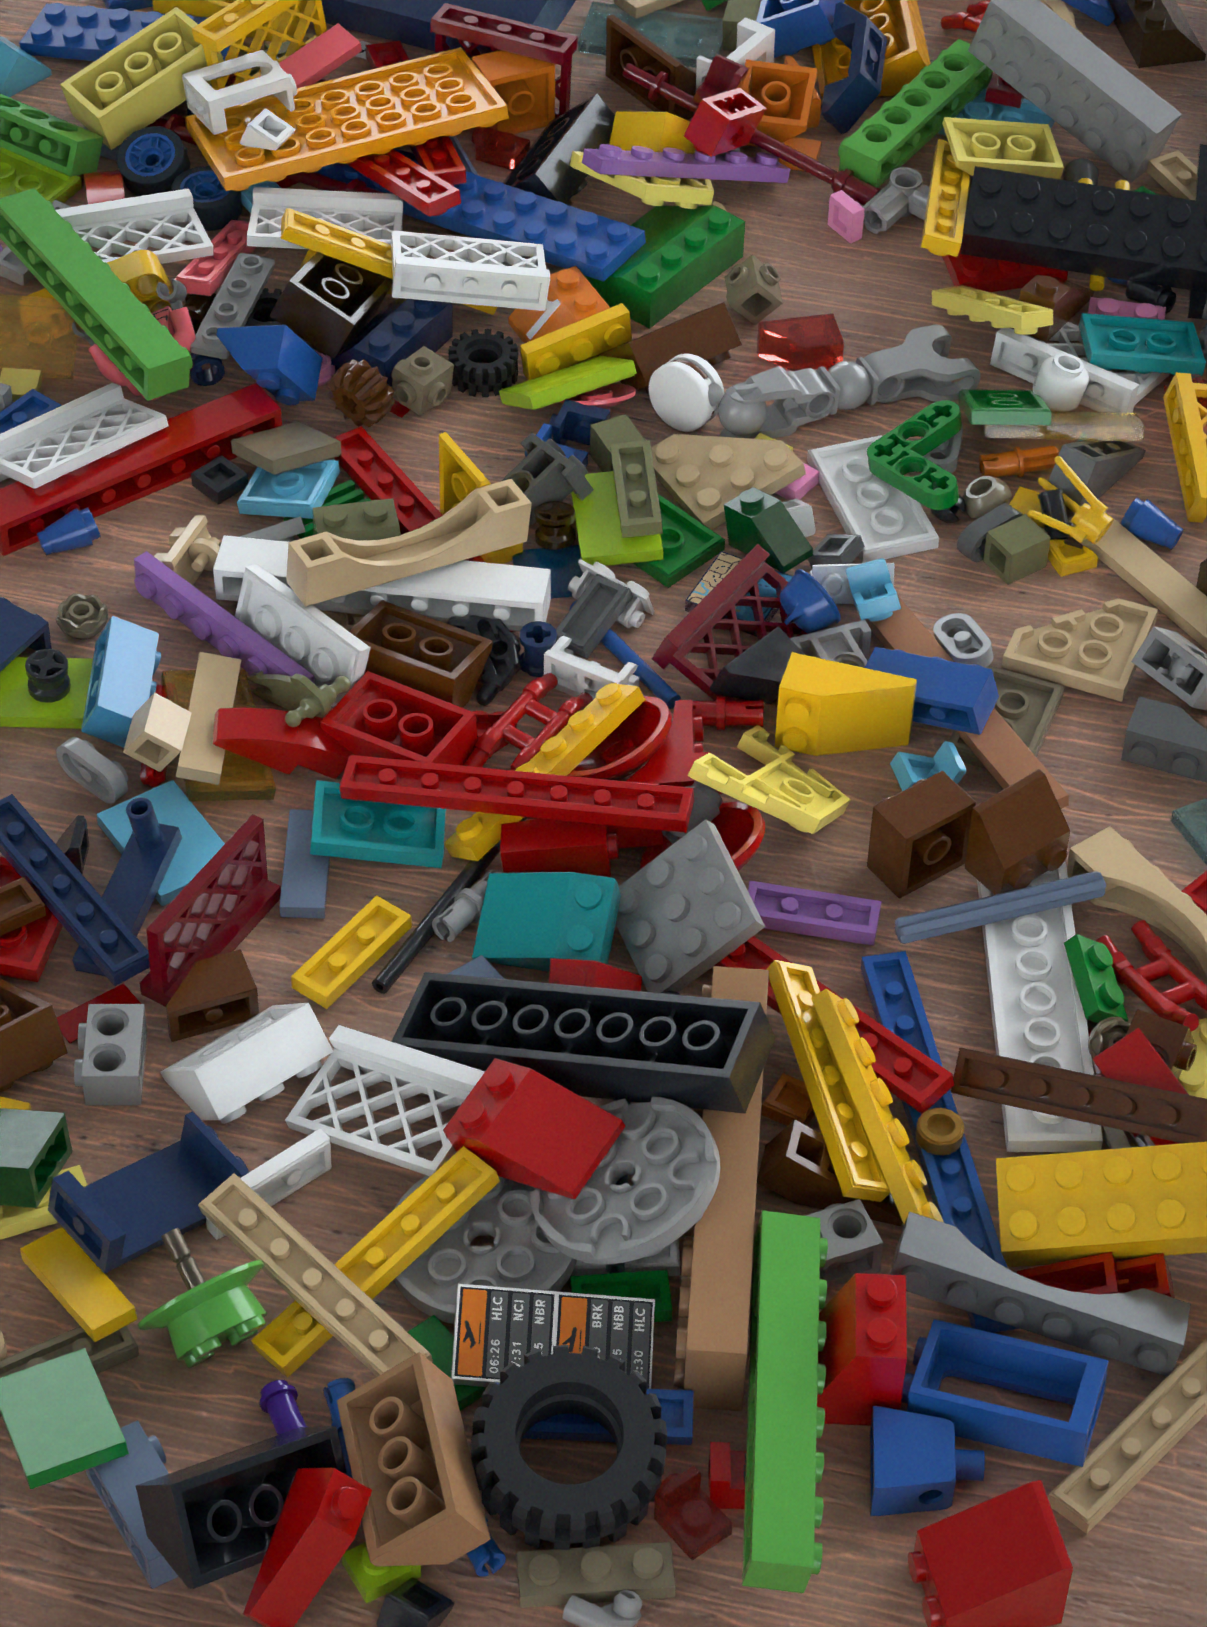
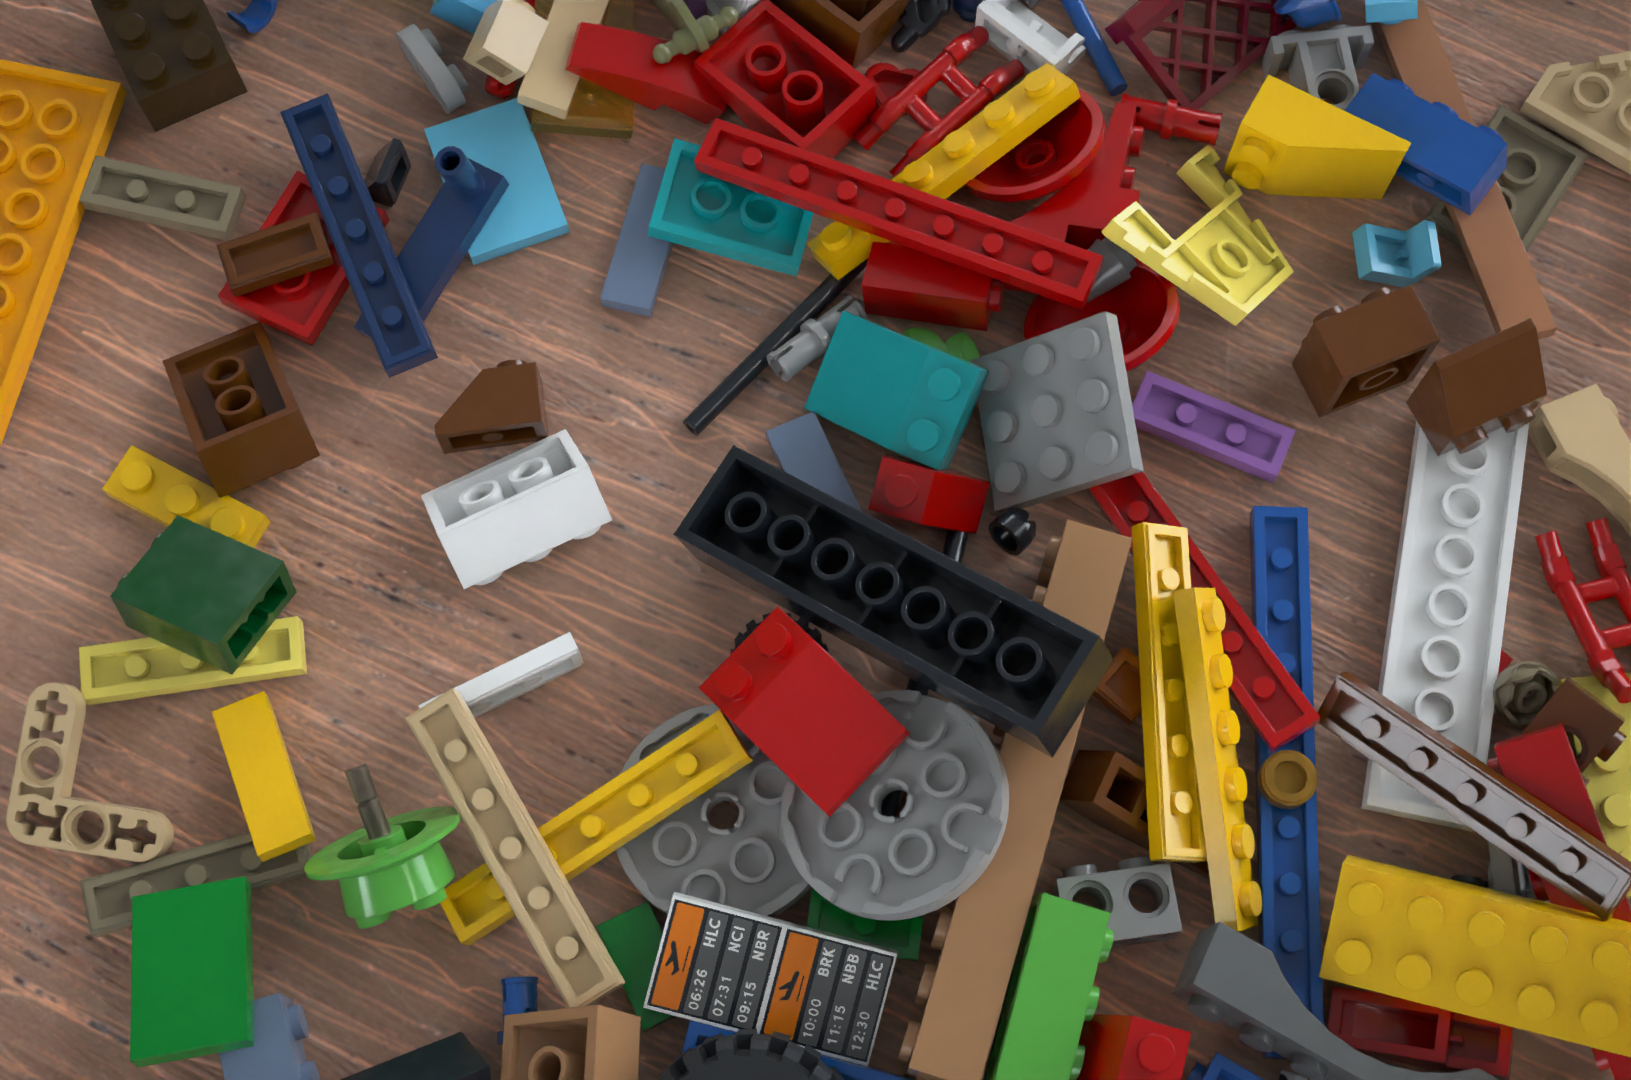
camera: 15 degrees right, 25 degrees up
(70, 1020) = (368, 399): red sticker -> none
(113, 1054) = (383, 469): light grey brick -> none
(141, 1202) = (361, 679): dark blue panel -> none
(211, 911) = (519, 305): dark red fence -> none
(279, 1401) = (453, 996): dark purple pin -> none
(351, 952) = (667, 377): yellow plate -> none
(400, 1066) = (680, 568): white fence -> none
(758, 670) = (1233, 73): black slope -> none
(963, 639) = (1487, 81): light grey plate -> none
(999, 907) = (1435, 473): sand blue axle -> none
(1095, 979) = (1525, 597): green plate -> none

